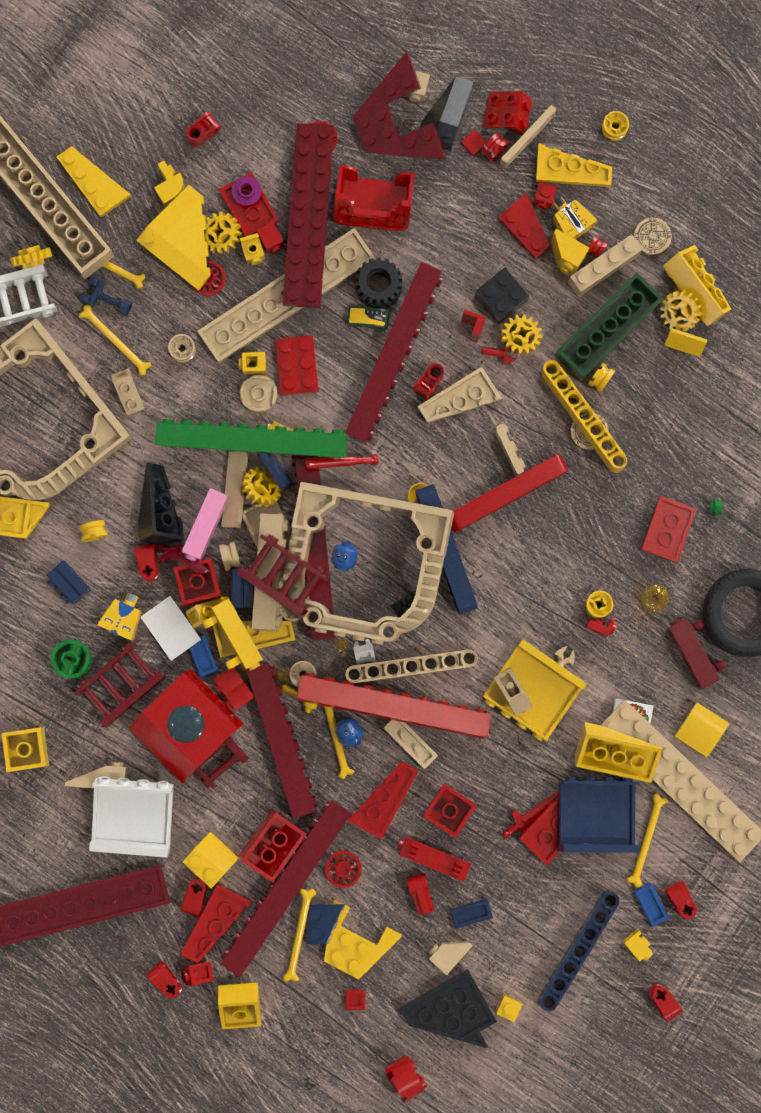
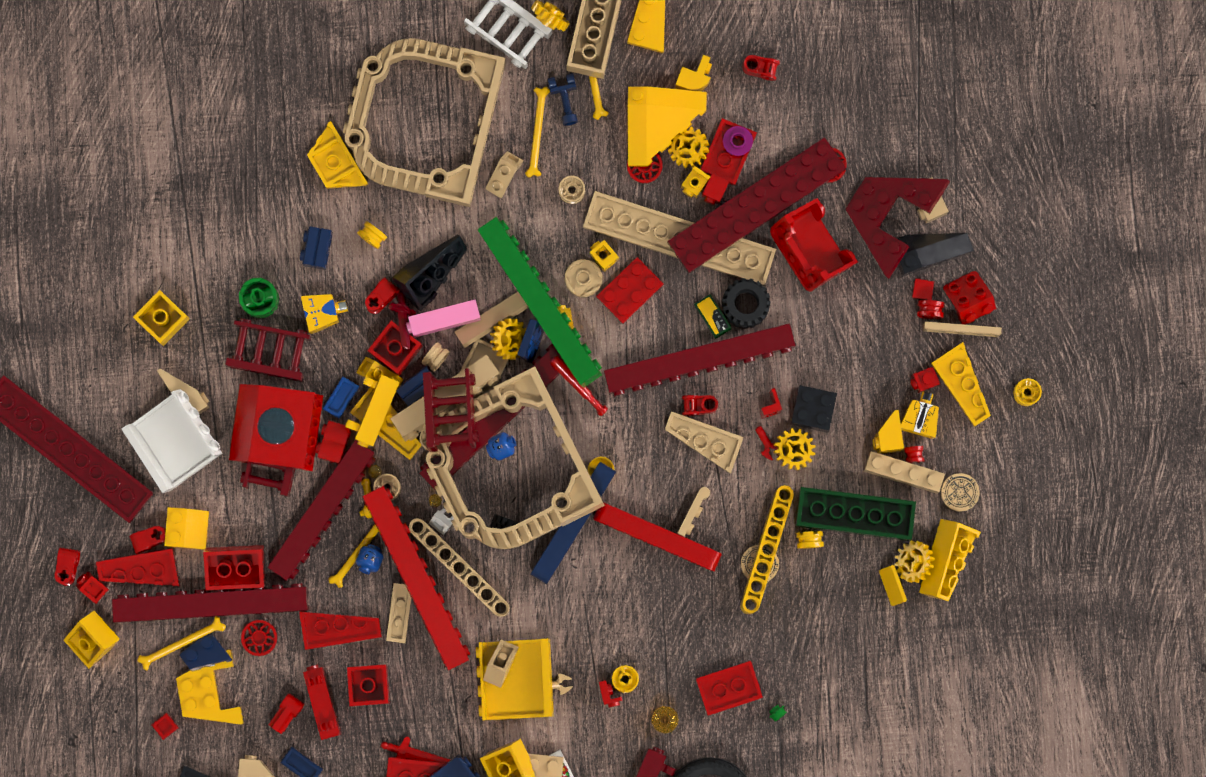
camera: 55 degrees right, 0 degrees up
(170, 628) = (343, 355): white sticker -> none
(525, 226) = (886, 384): red wing -> none

